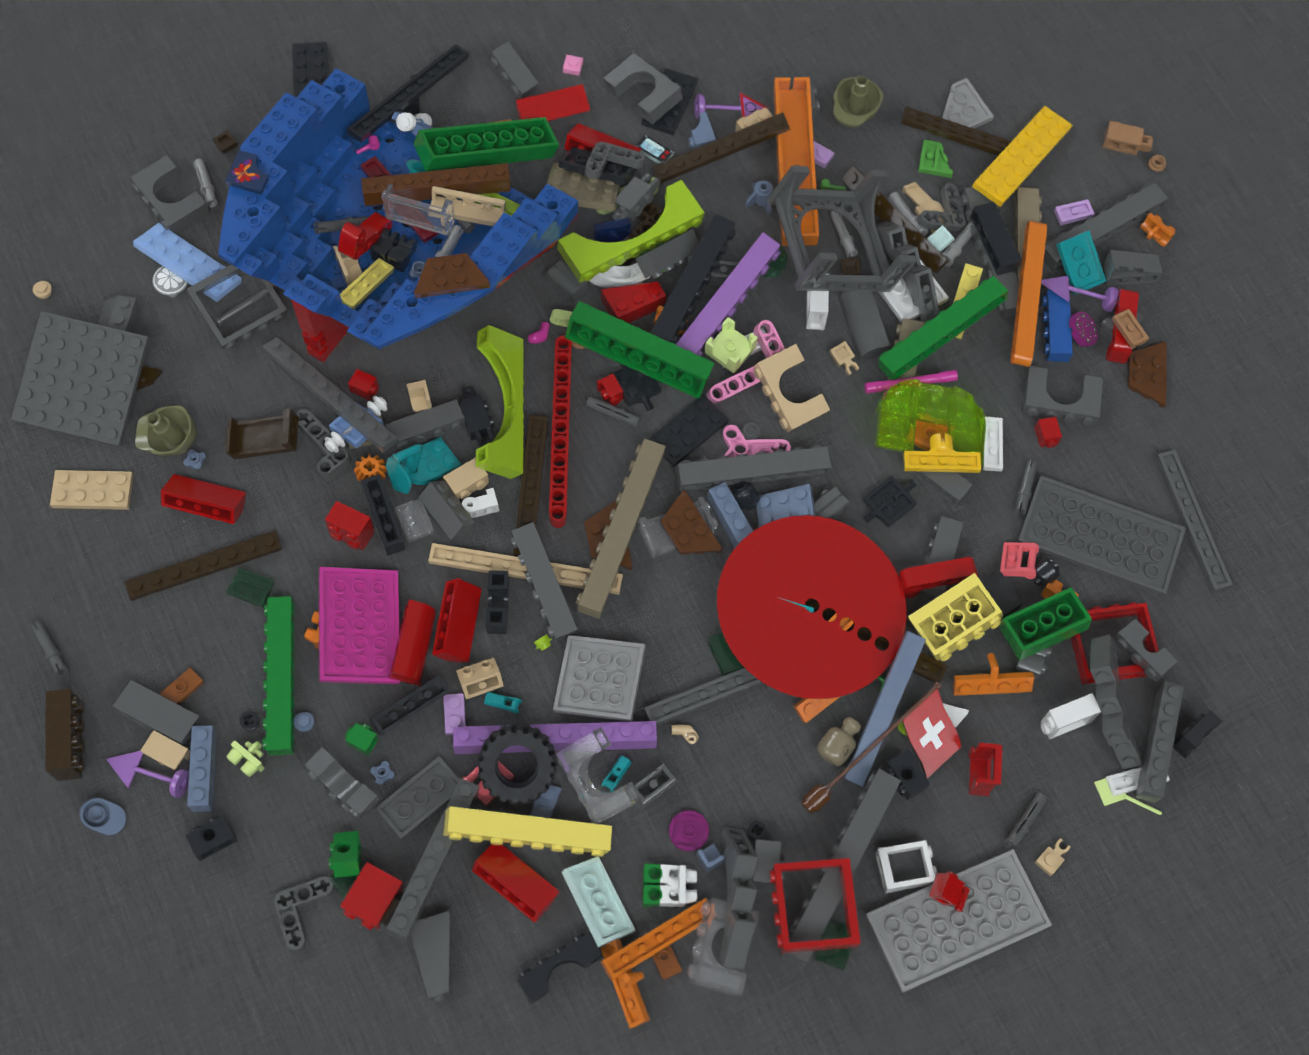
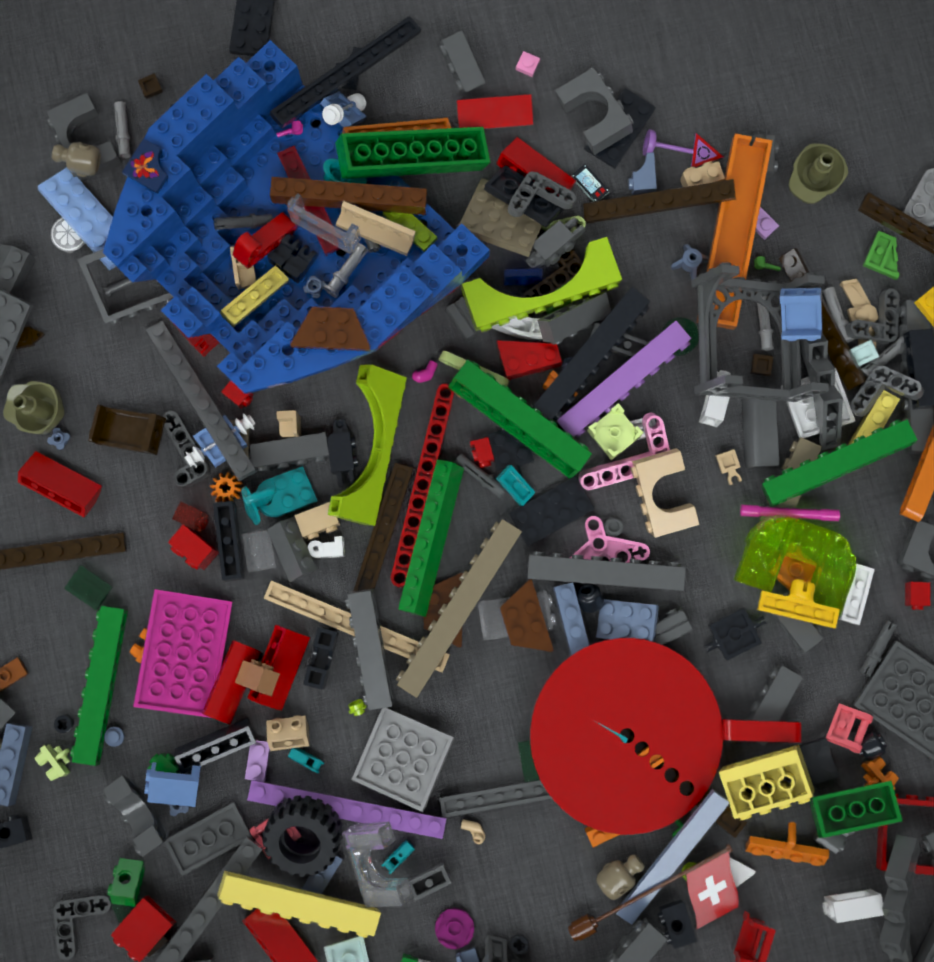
camera: 20 degrees right, 15 degrees up
(171, 207) = (79, 158): none -> dark tan piece
(342, 493) = (190, 517): none -> clear red brick
(374, 748) = (172, 787): none -> medium blue panel
(439, 626) = (257, 677): none -> medium nougat brick
(580, 473) = (431, 538): none -> green brick
(649, 411) = (515, 485): none -> teal plate
(874, 207) = (801, 313): none -> medium blue panel
(961, 257) = (882, 383): none -> dark grey beam

